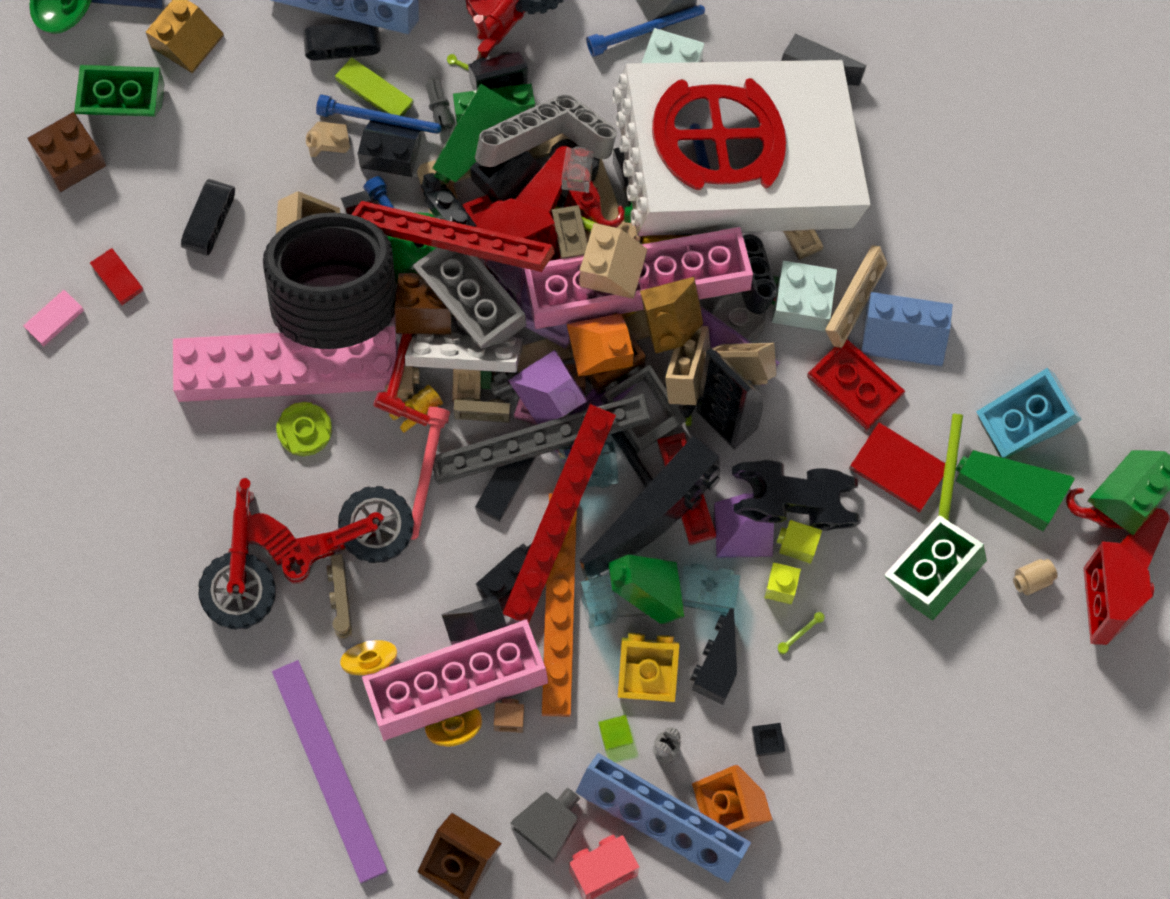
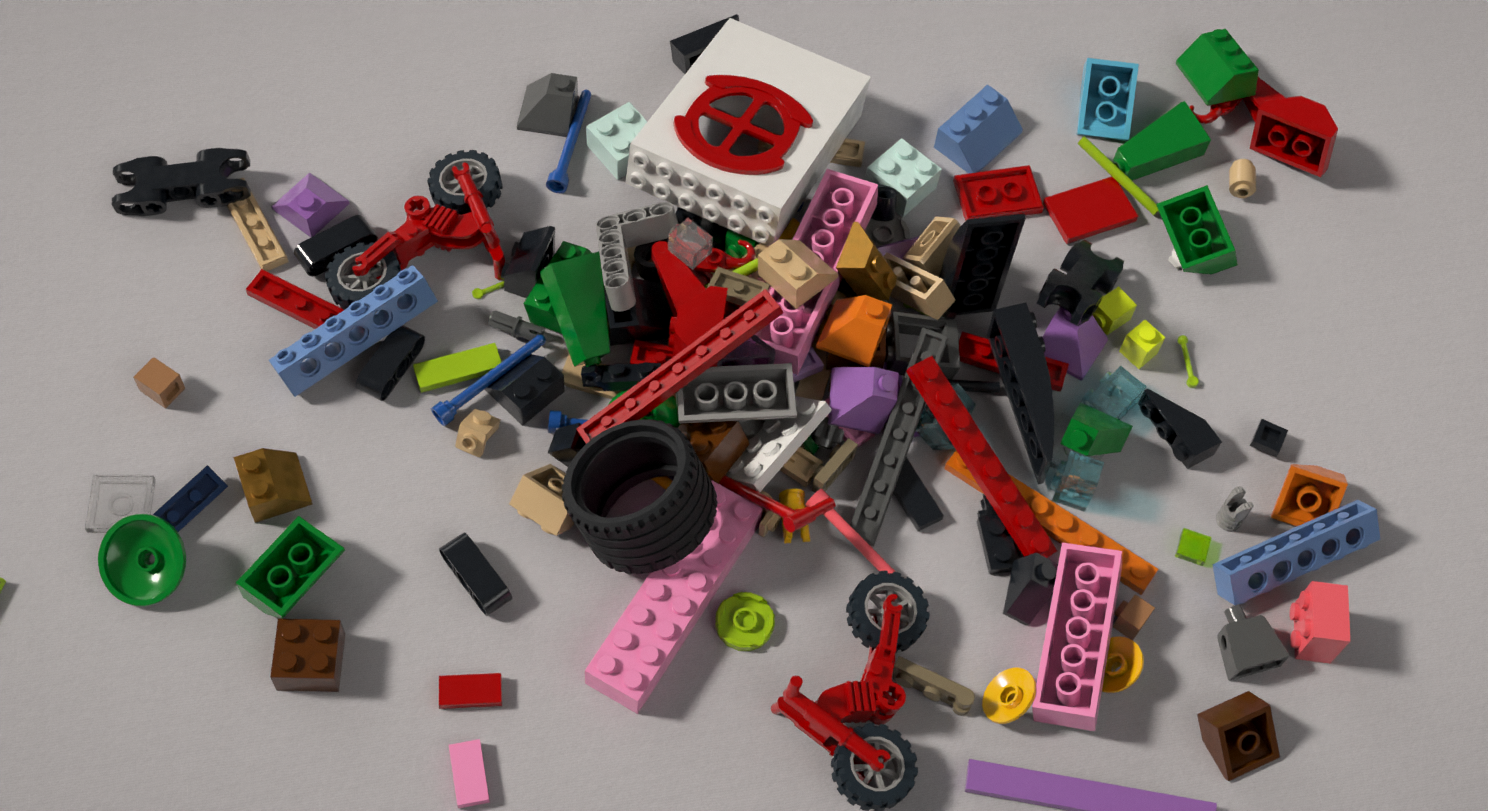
camera: 60 degrees left, 10 degrees down
(648, 668) = (1154, 483): yellow plate -> none
(856, 296) = (929, 143): tan tile -> none

